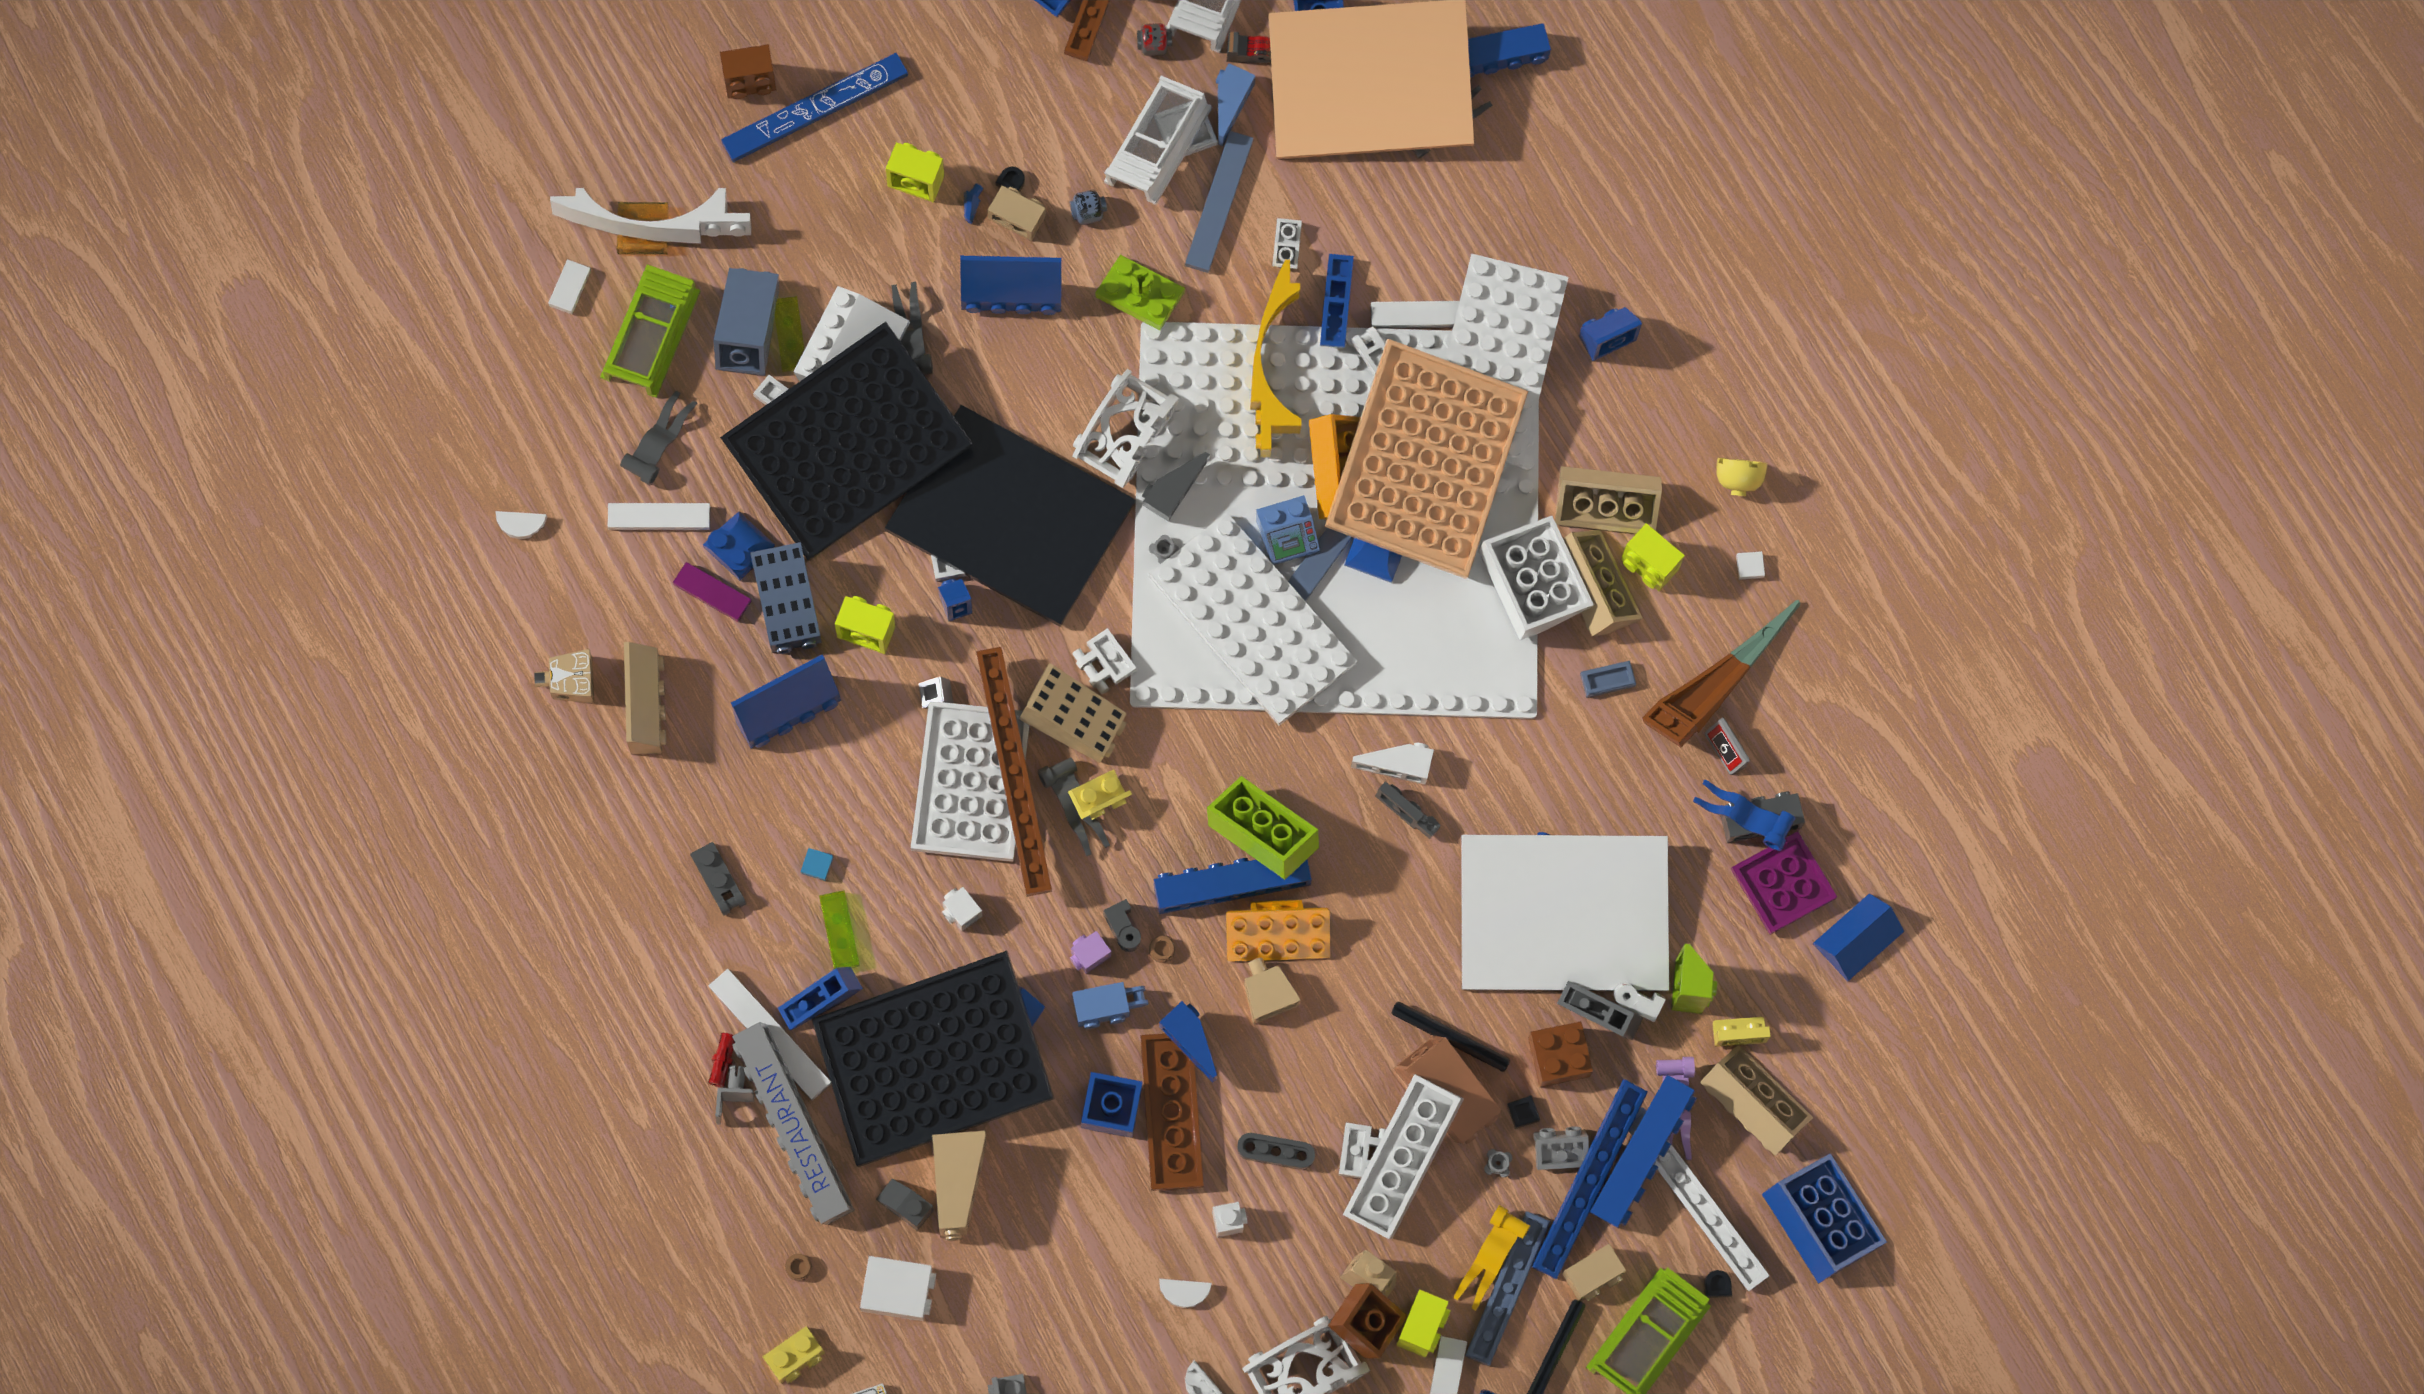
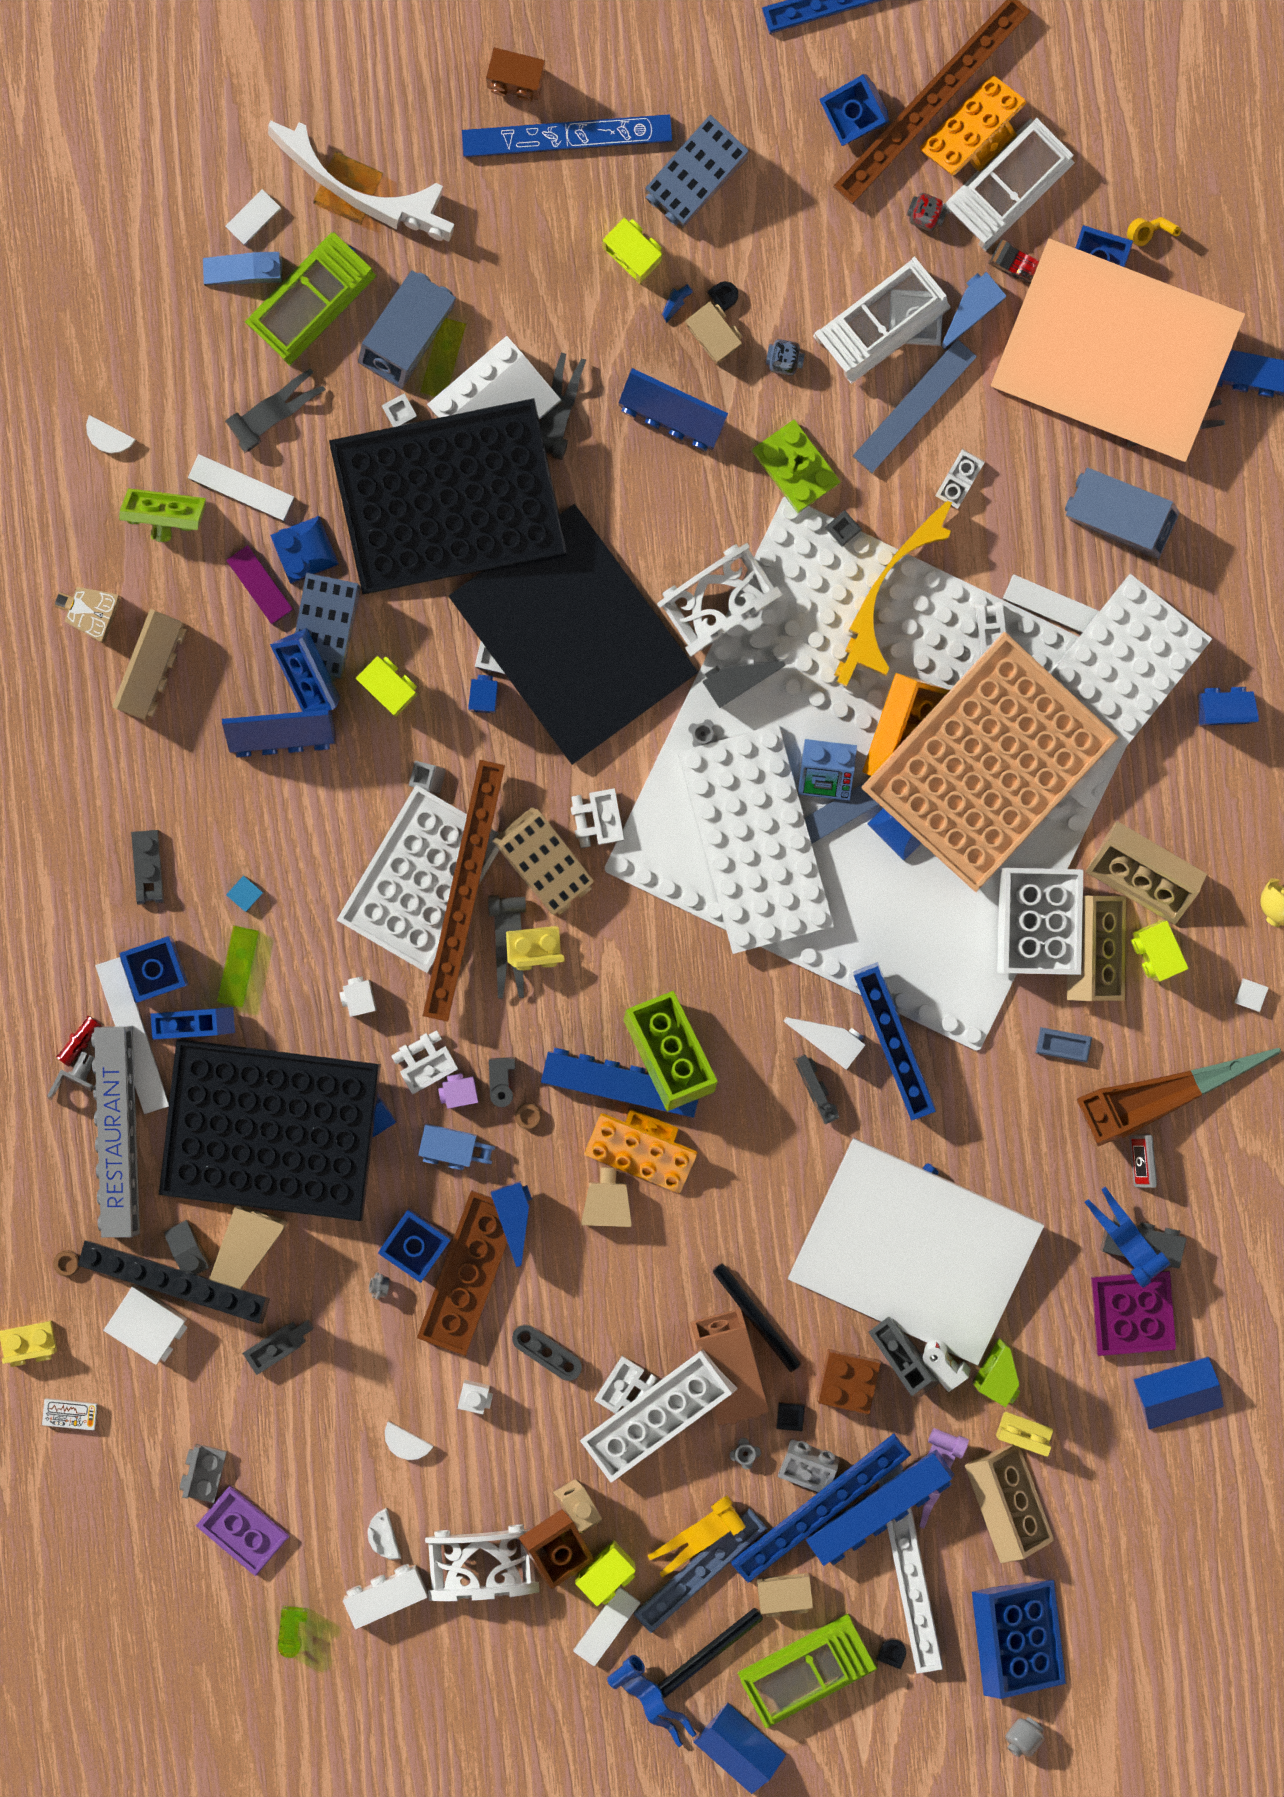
camera: 30 degrees right, 15 degrees up
(580, 331) = (243, 268): none -> medium blue slope
(598, 564) = (162, 511): none -> lime plate
(764, 962) = (154, 969): none -> blue brick
(783, 639) = (306, 672): none -> blue slope
(906, 1229) = (174, 1282): none -> black plate
(941, 85) = (696, 172): none -> sand blue slope
(1026, 1255) = (277, 1346): none -> dark grey hinge
(1052, 946) = (430, 1068): none -> white plate
(1095, 1158) = (379, 1286): none -> light grey plate
(1205, 325) = (843, 528): none -> dark grey tile
(1336, 300) = (980, 559): blue slope -> none
(1441, 210) = (1122, 512): none -> sand blue slope
(1458, 735) = (894, 1041): none -> blue brick
(1874, 1305) = (1024, 1737): none -> light grey head

